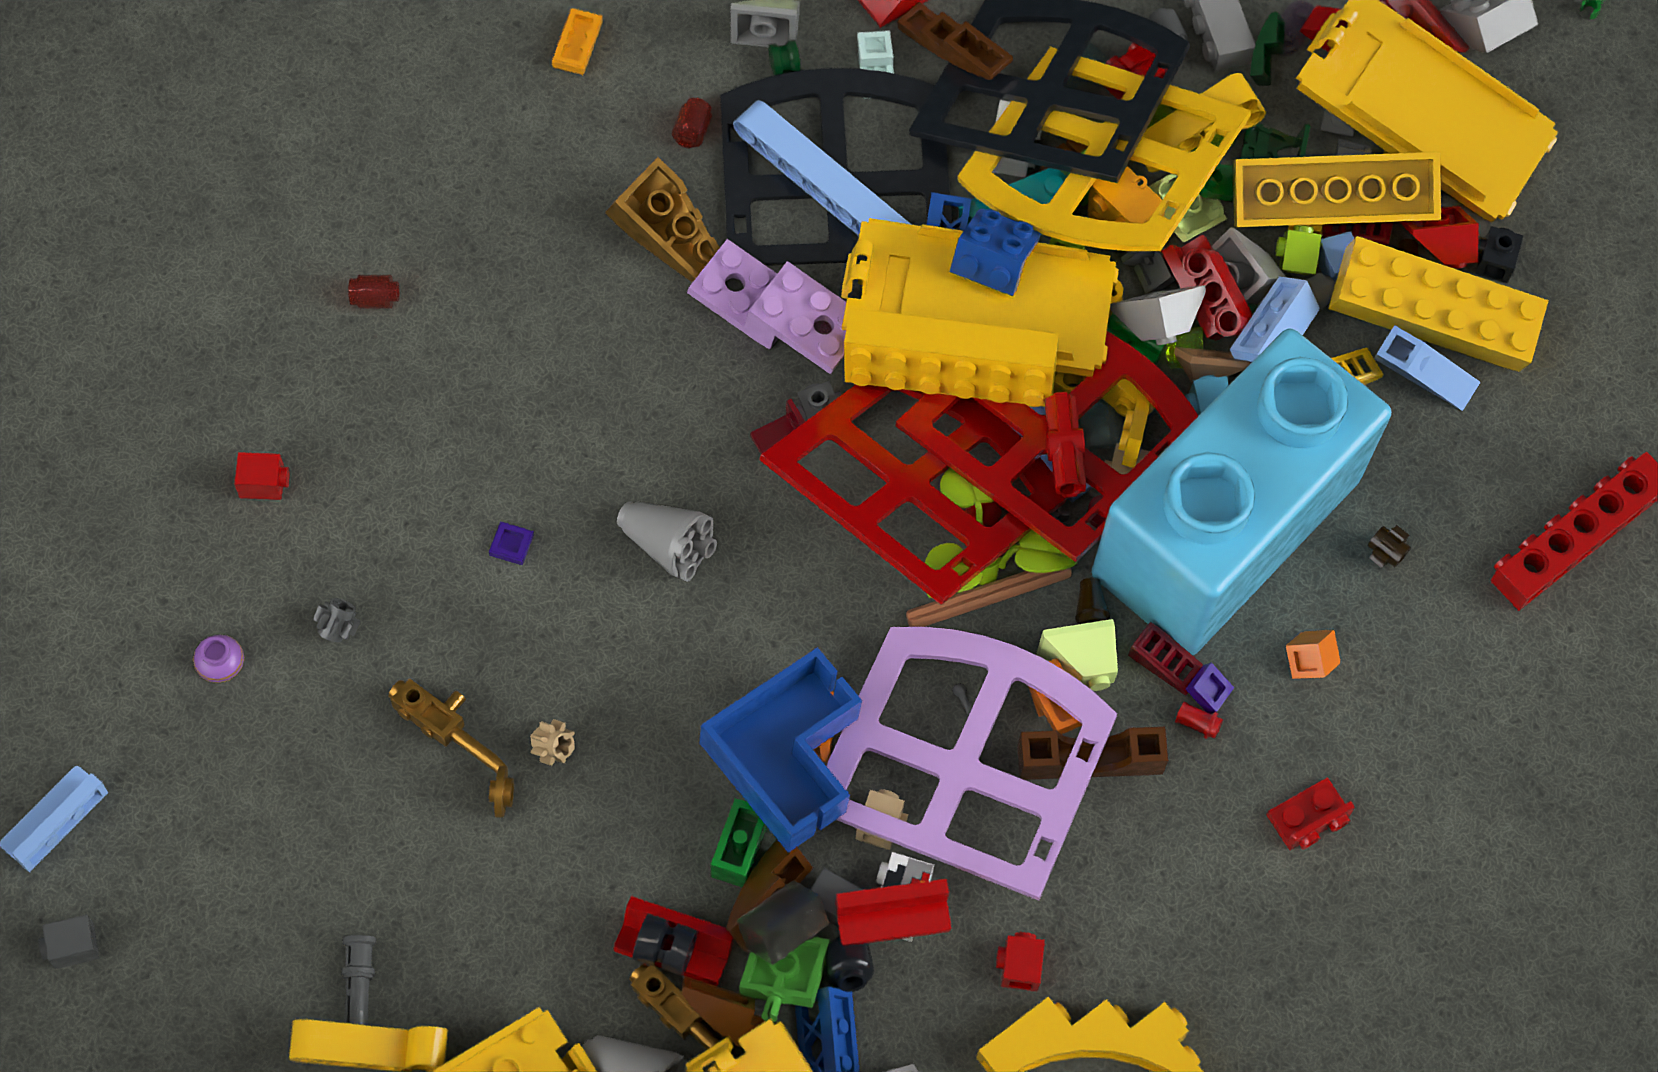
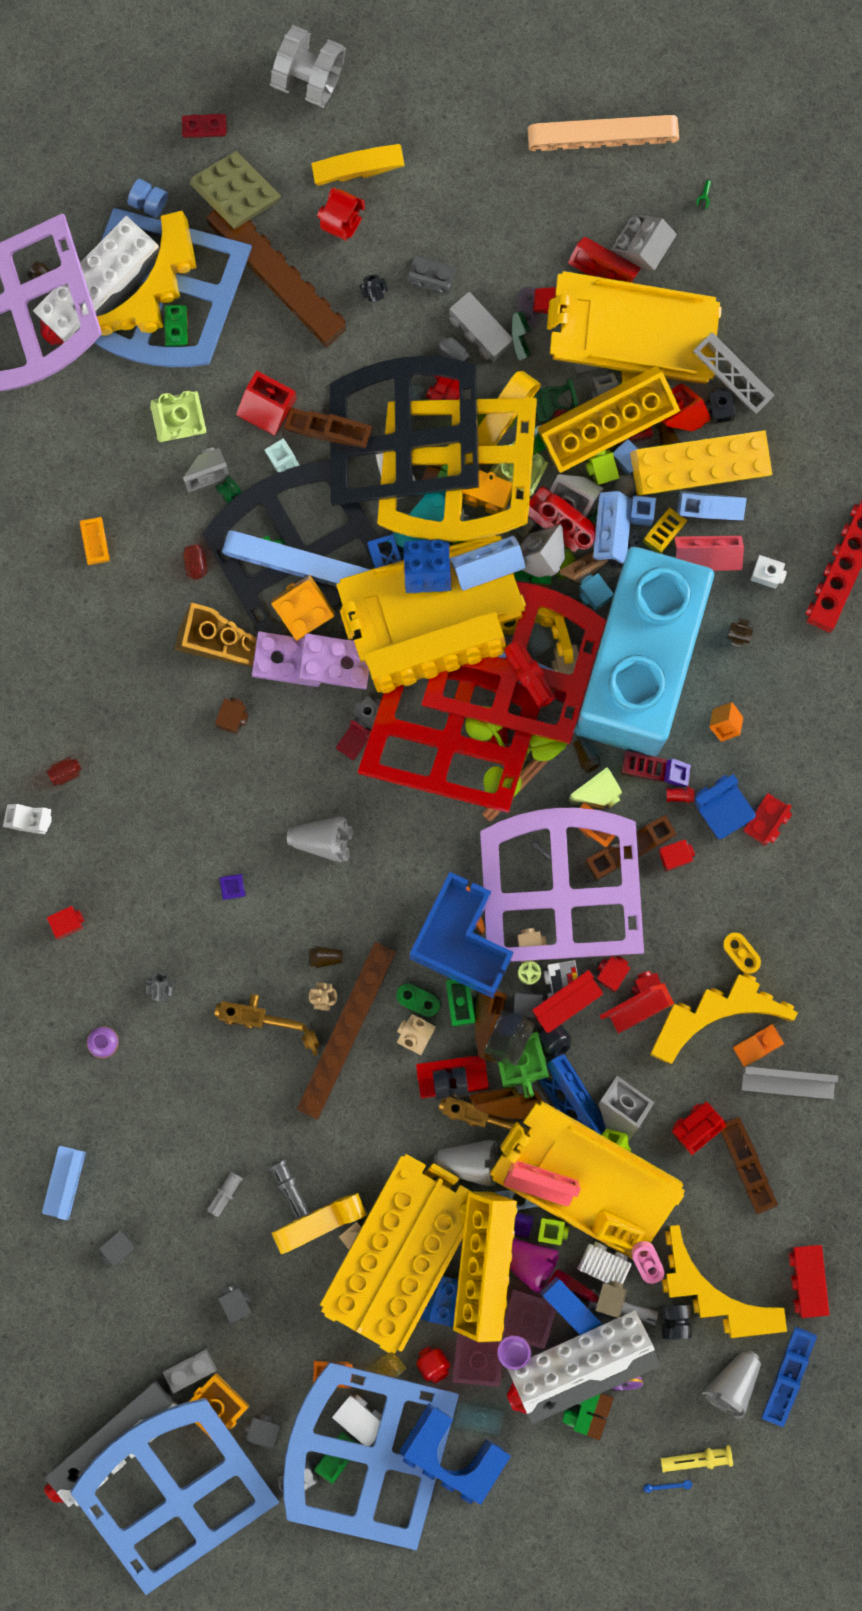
camera: 25 degrees left, 15 degrees up
(262, 945) = (224, 1194): none -> light grey axle
(290, 325) = (27, 818): none -> white brick
(557, 805) = (346, 1031): none -> reddish brown brick
(584, 692) = (324, 956): none -> dark brown cone
(633, 327) = (232, 715): none -> reddish brown brick
(653, 856) = (415, 1034): none -> tan brick
(682, 815) = (417, 1001): none -> green plate
(802, 232) = (302, 607): none -> light orange brick
(863, 848) = (530, 969): none -> yellowish green wheel
(980, 912) = (612, 972): none -> red brick
(992, 972) = (639, 1008): none -> red panel
(1081, 285) = (488, 563): none -> light blue panel
(1153, 795) = (676, 855): none -> red brick
(1183, 980) = (743, 952): none -> yellow plate
(1254, 763) = (724, 807): none -> blue bracket
(1328, 327) = (642, 510): none -> medium blue brick
(1413, 437) = (714, 552): none -> coral panel
(1467, 488) = (768, 572): none -> white brick
(1542, 213) = (737, 369): none -> light grey fence

